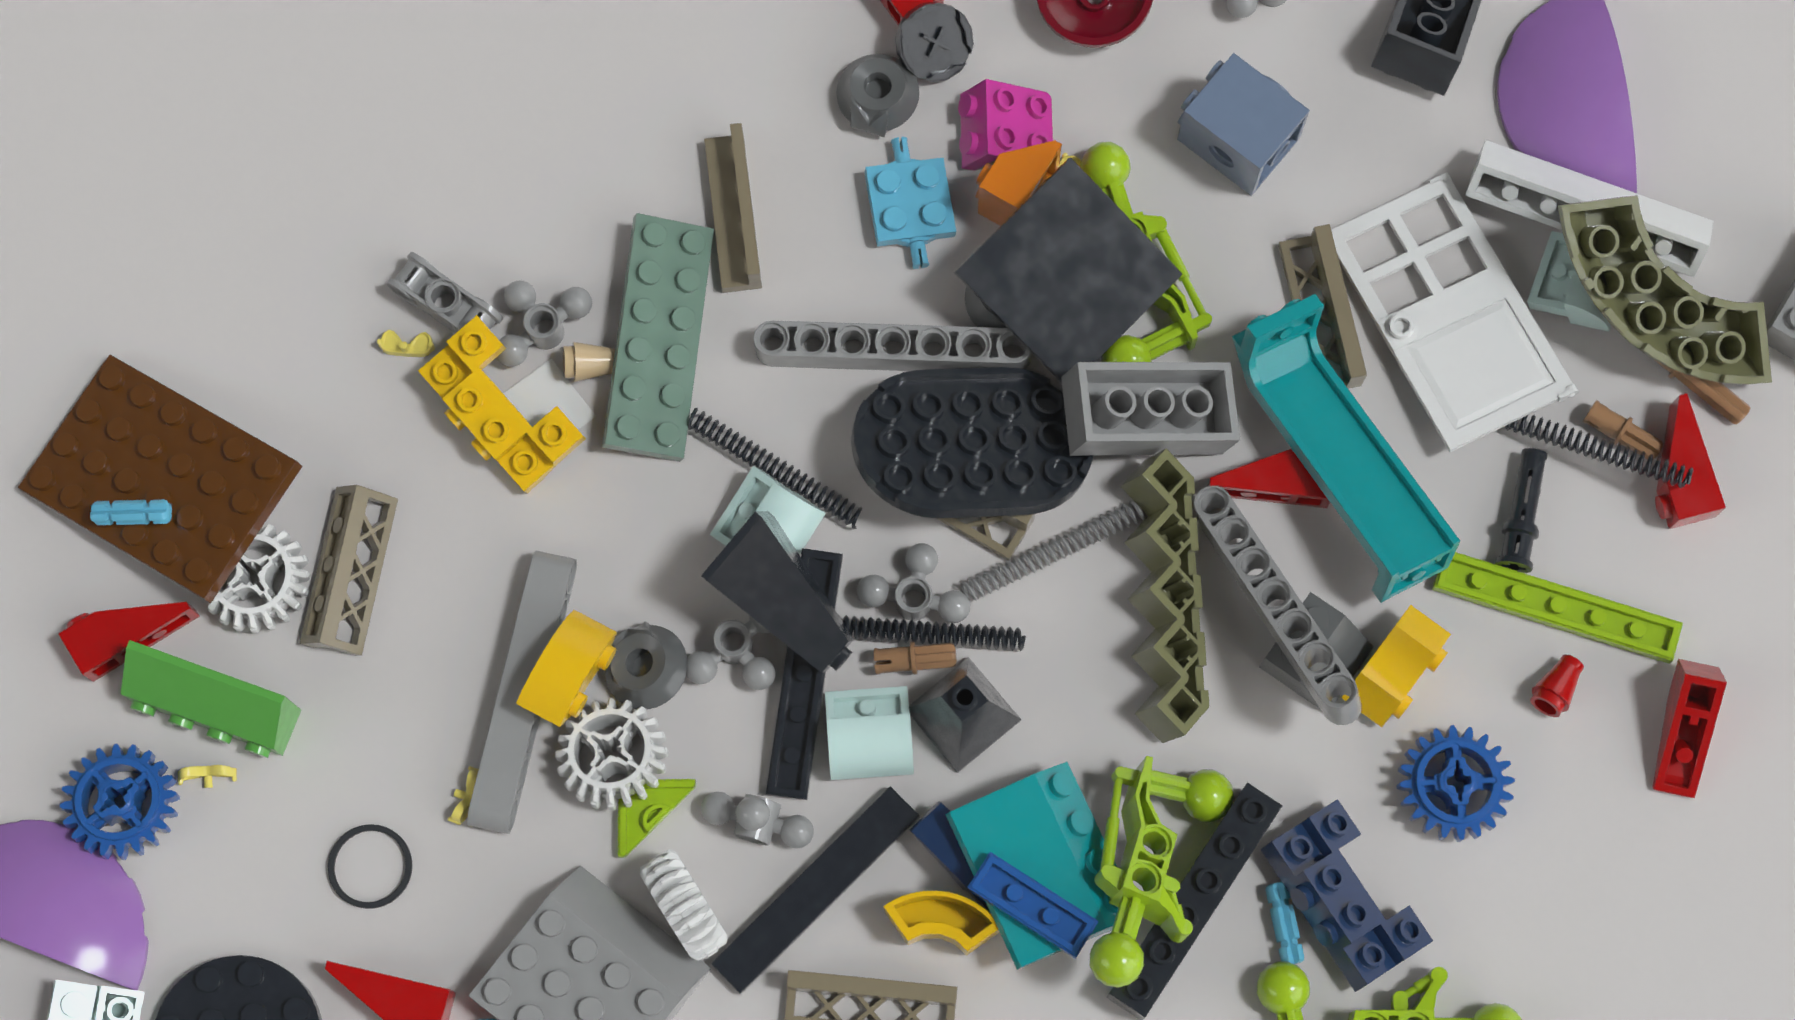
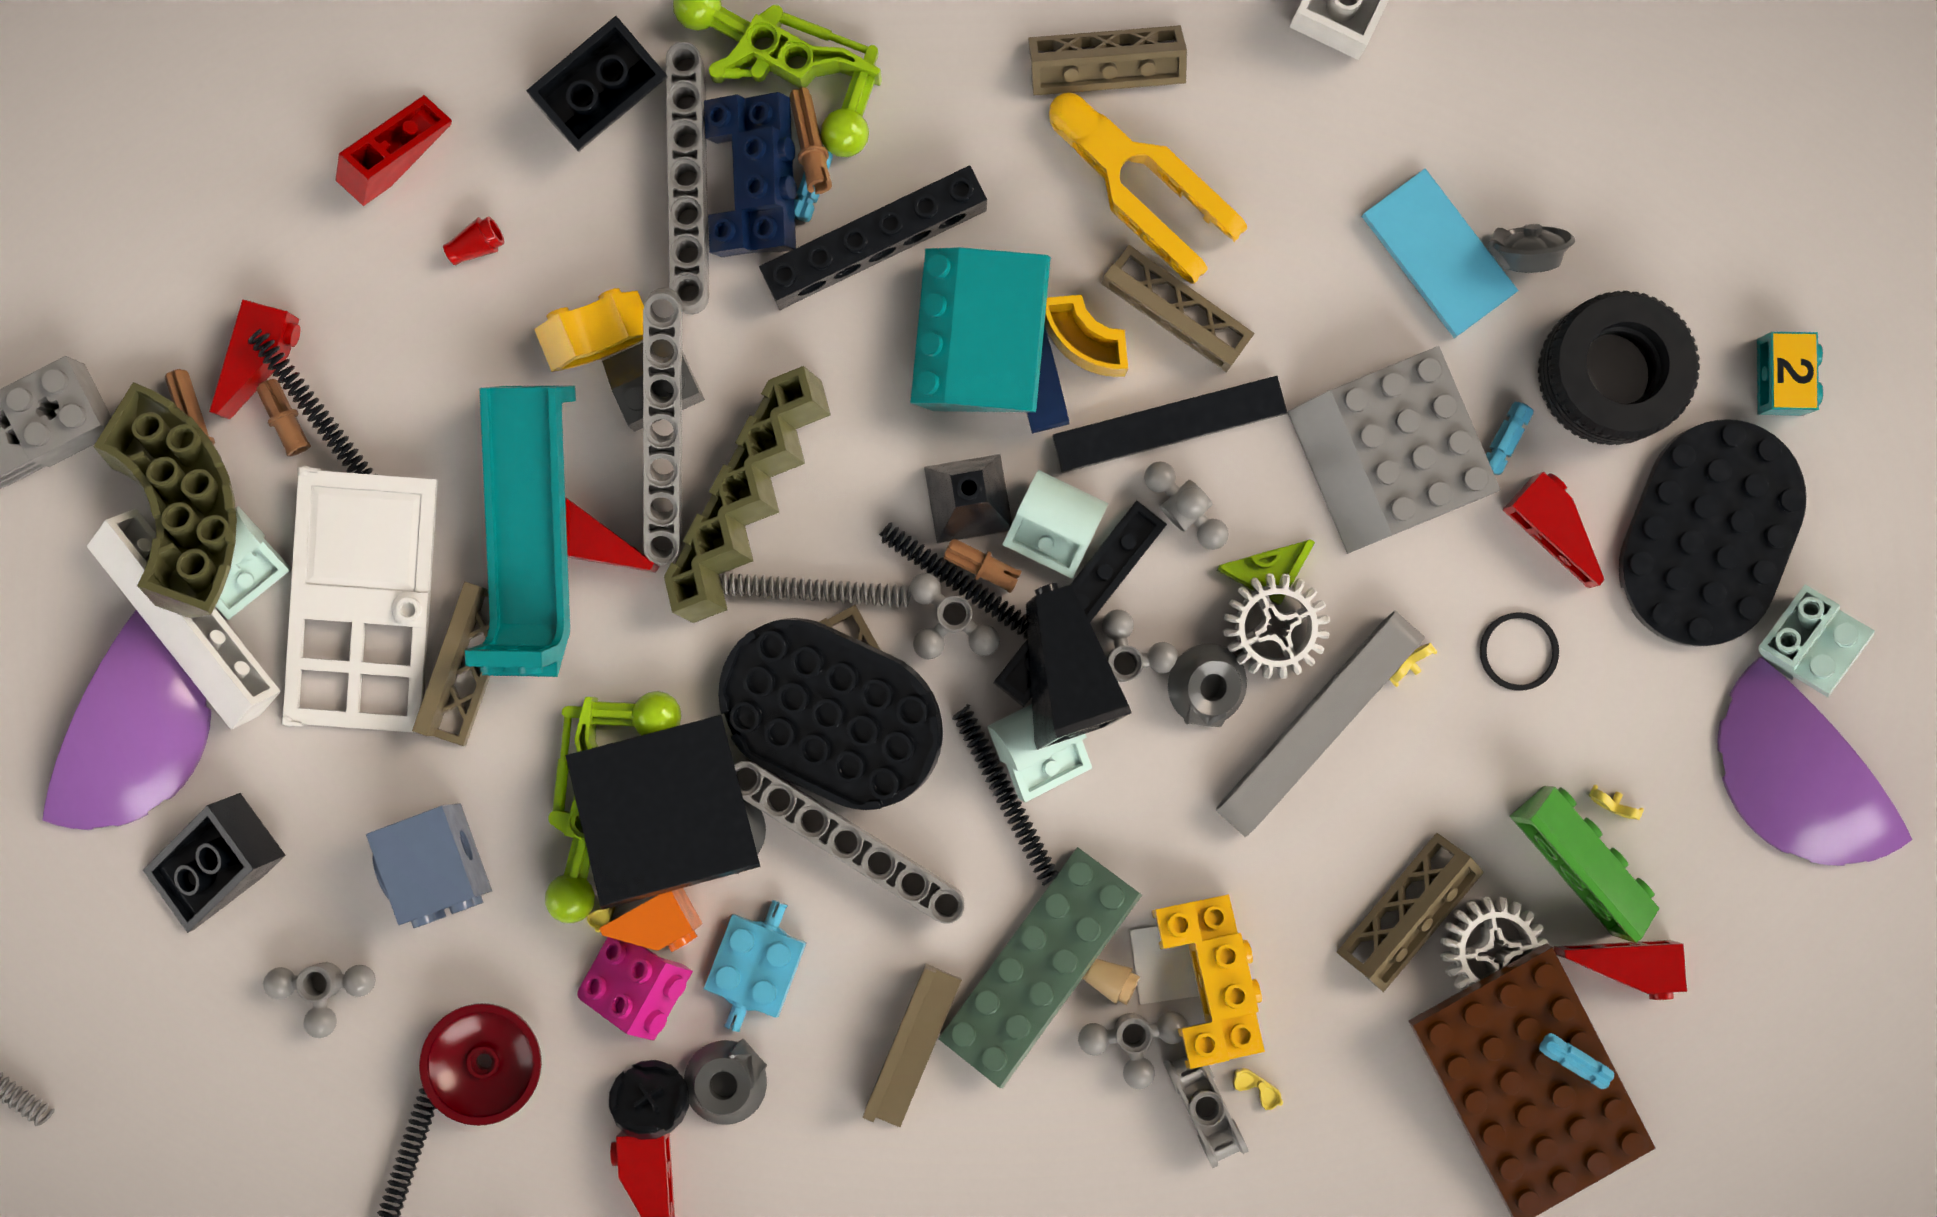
camera: 155 degrees left, 10 degrees up
(106, 809) = (1706, 835): blue gear -> none
(566, 668) = (1278, 712): yellow brick -> none
(683, 905) = (1287, 465): white gear -> none
(1032, 905) = (1009, 296): blue tile -> none
(1150, 408) = (664, 655): light grey brick -> none
(1206, 796) = (814, 315): lime piece -> none
(1300, 946) = (812, 154): none -> medium nougat axle
(1403, 879) = (683, 160): none -> light grey beam
(1455, 802) = (600, 225): blue gear -> none
(1524, 530) = (374, 433): black pin -> none
(1538, 892) = (596, 84): none -> black slope
(1560, 607) = (428, 303): lime tile -> none

